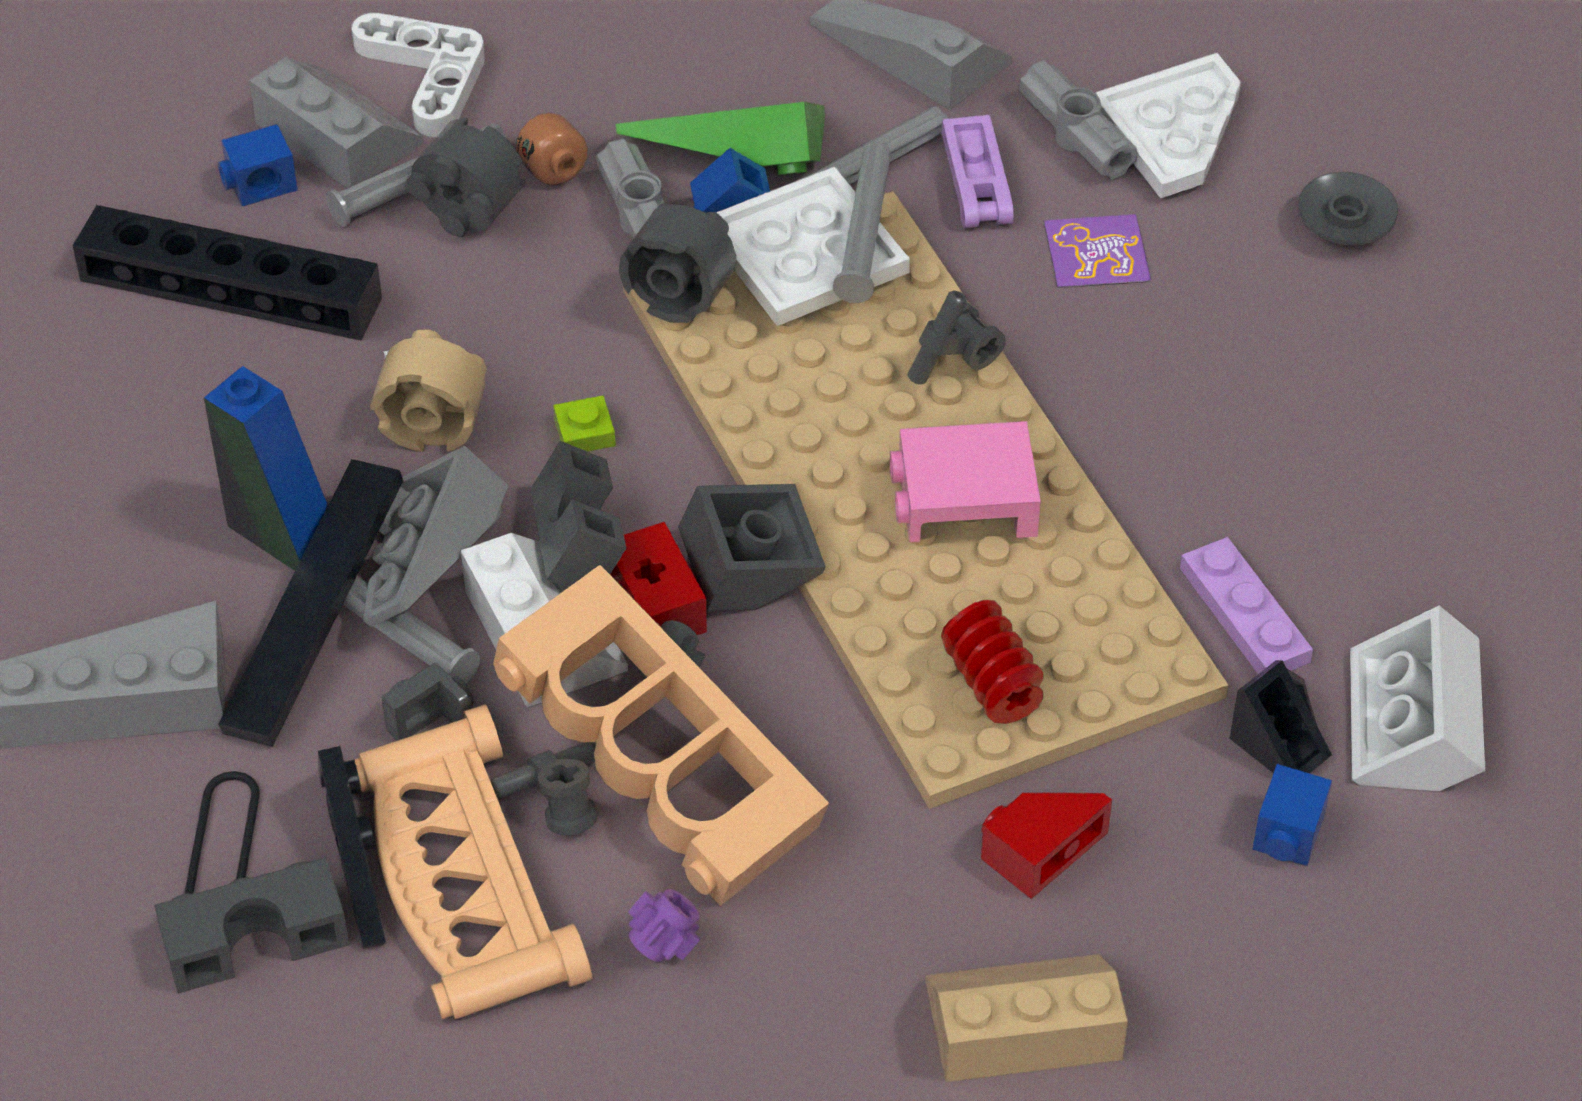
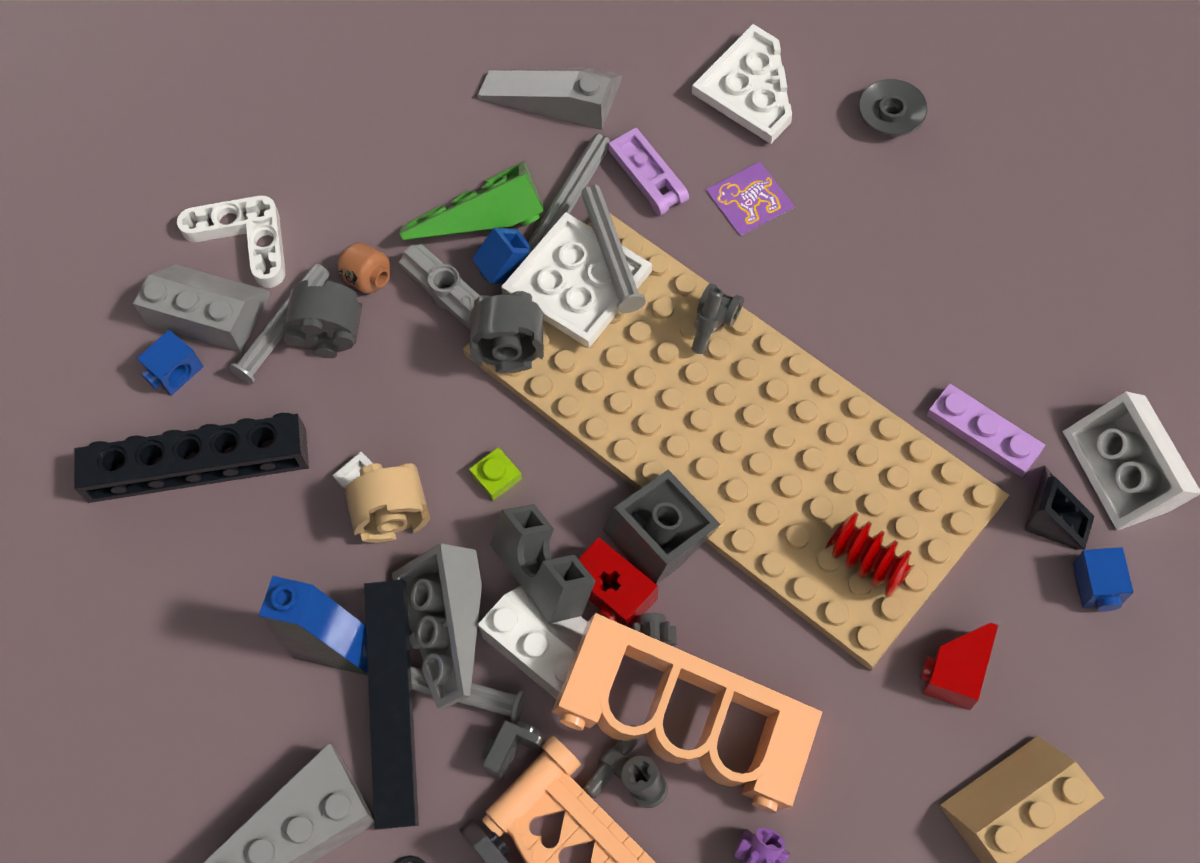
camera: 20 degrees left, 15 degrees up
(966, 476) = (778, 419): bright pink panel -> none
(1078, 120) = (692, 108): light grey piece -> none

